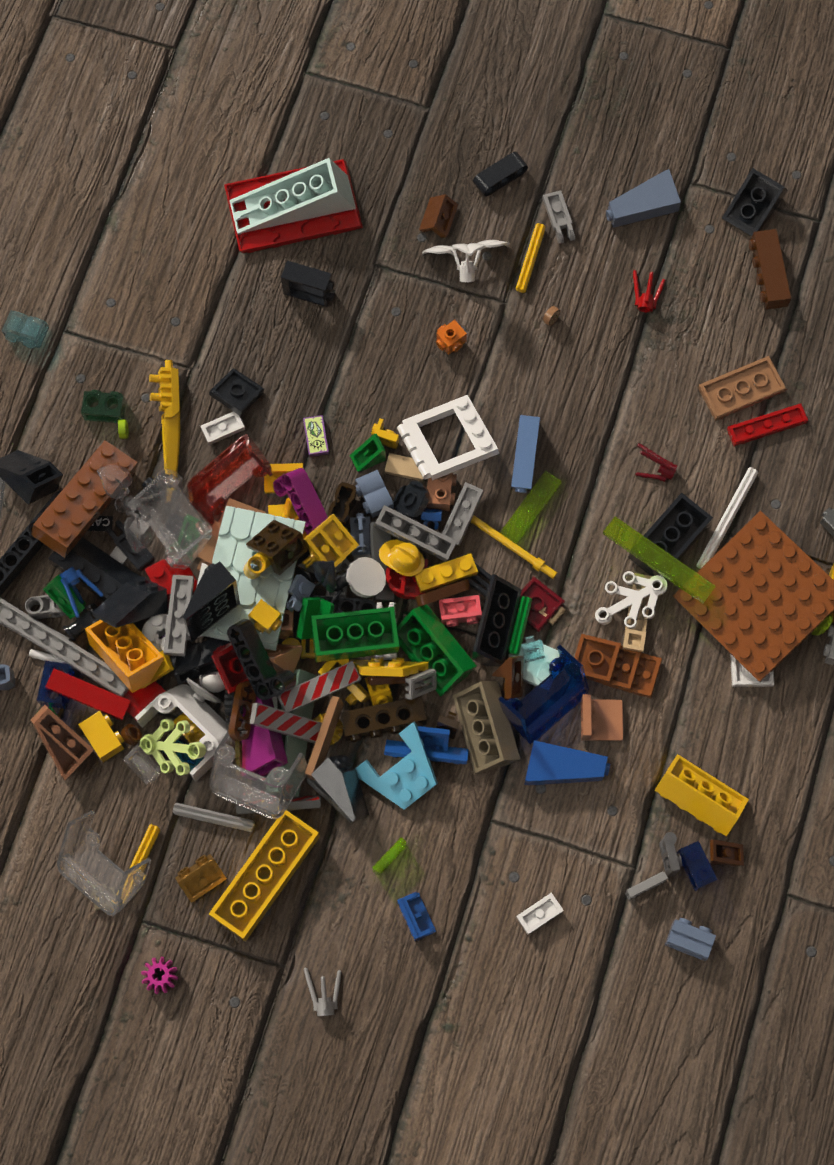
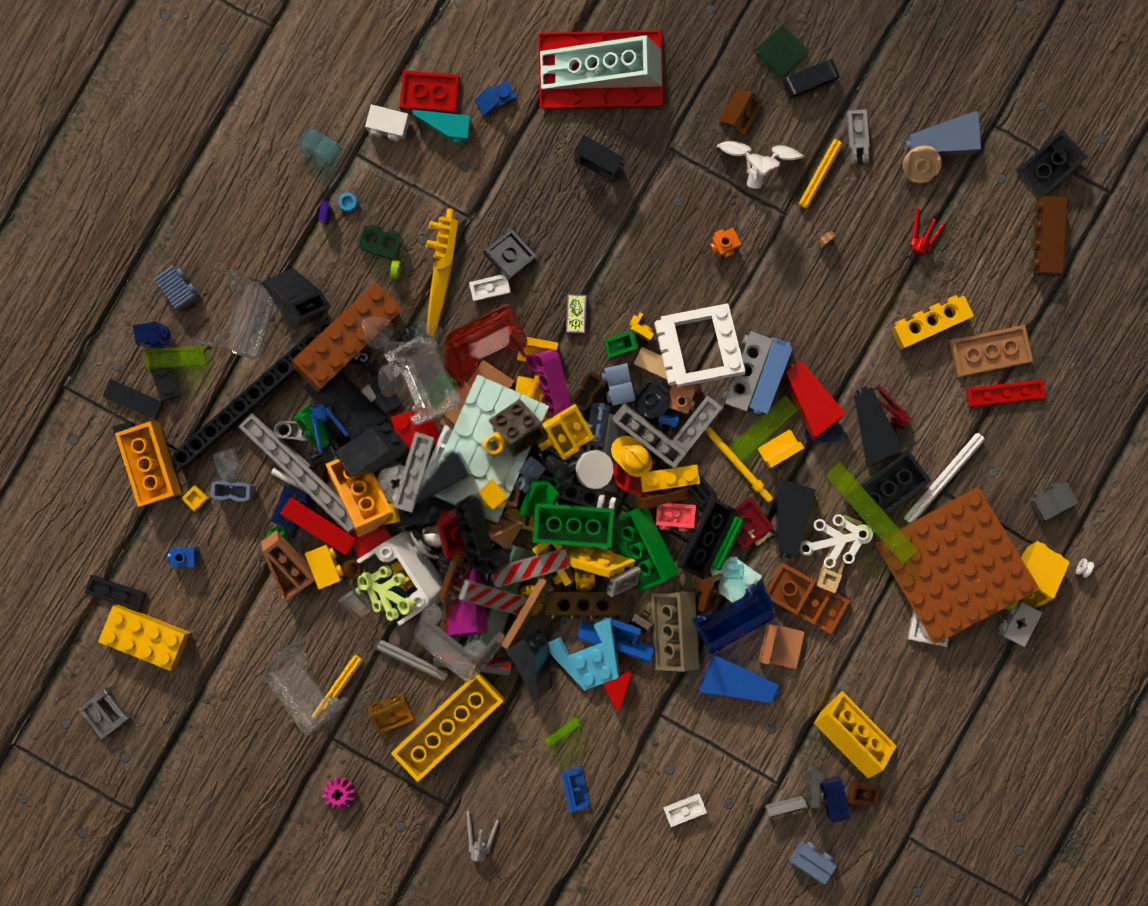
camera: 10 degrees right, 15 degrees up
(41, 389) = (325, 211): none -> dark purple tile
(63, 376) = (348, 202): none -> dark azure tile
(90, 293) = (387, 123): none -> white brick
(126, 259) = (429, 92): none -> red tile
(150, 284) = (450, 126): none -> teal slope
(192, 251) = (495, 98): none -> blue slope
(437, 798) = (617, 688): none -> red slope
(465, 156) = (781, 51): none -> clear green tile
(501, 484) = (761, 345): none -> light grey brick
(553, 524) = (780, 448): none -> yellow panel
(574, 467) = (812, 400): none -> red slope
(579, 582) = (791, 515): none -> black slope
(594, 499) = (826, 436): none -> clear blue plate
(627, 227) = (922, 164): none -> tan tile
(646, 485) = (875, 429): none -> black slope
(655, 391) = (960, 312): none -> yellow brick

